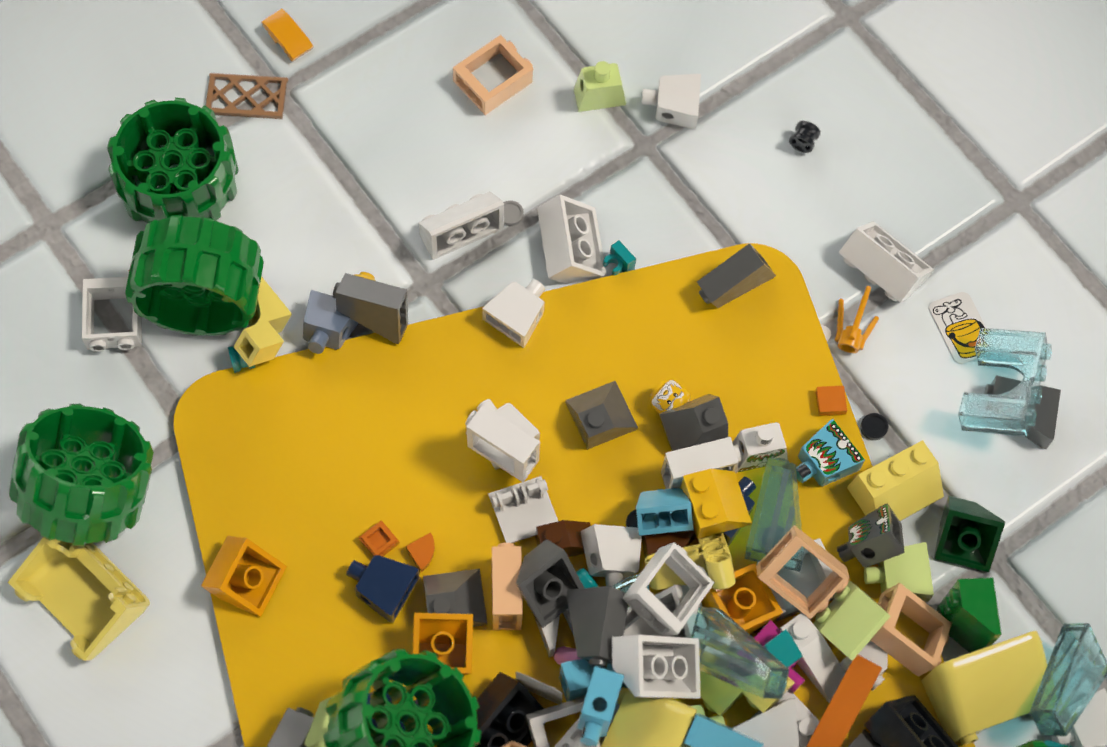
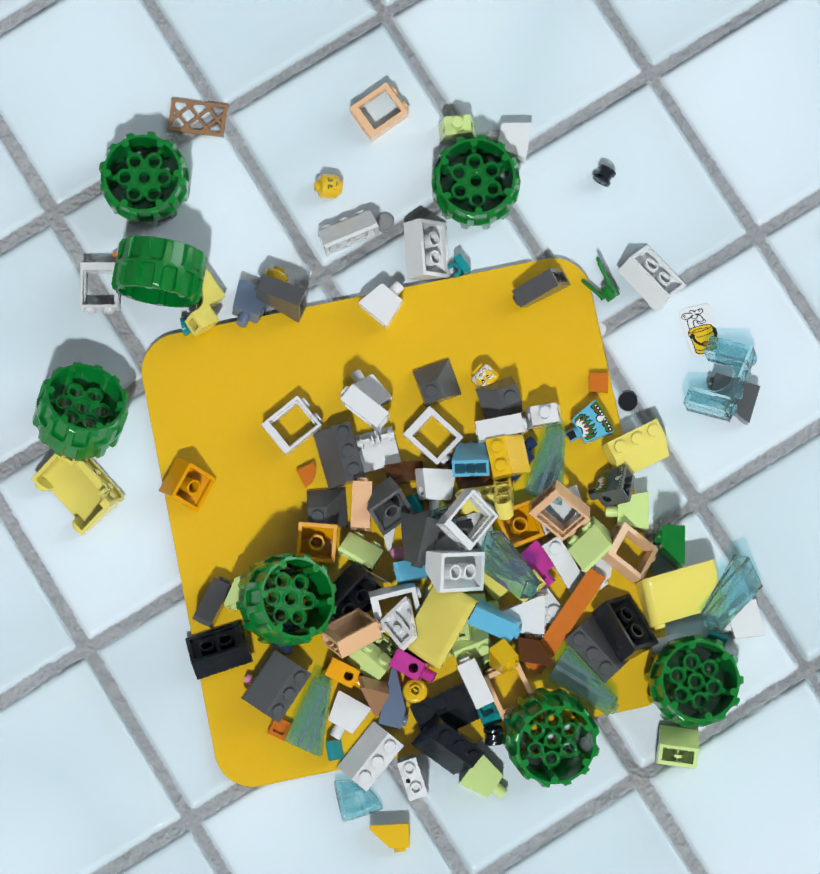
camera: 10 degrees right, 15 degrees up
(287, 34) = (229, 69): light orange slope -> none
(376, 502) = (304, 405): none -> white window
(379, 539) = (278, 464): orange tile -> none
(384, 584) = (280, 496): dark blue torso -> none
(430, 168) = (328, 186): none -> yellow head
(467, 519) = (339, 455): none -> dark grey slope
(506, 654) = (361, 551): none -> yellowish green slope
(583, 467) = (419, 423): none -> white window
(599, 705) = (415, 590): medium azure torso -> none
(649, 111) = (472, 147): none -> green wheel
(784, 648) = (541, 562): teal slope -> none
(831, 279) = (609, 290): none -> green plant
(850, 339) = (619, 335): light orange plant -> none
(968, 534) = (680, 485): dark green slope -> none

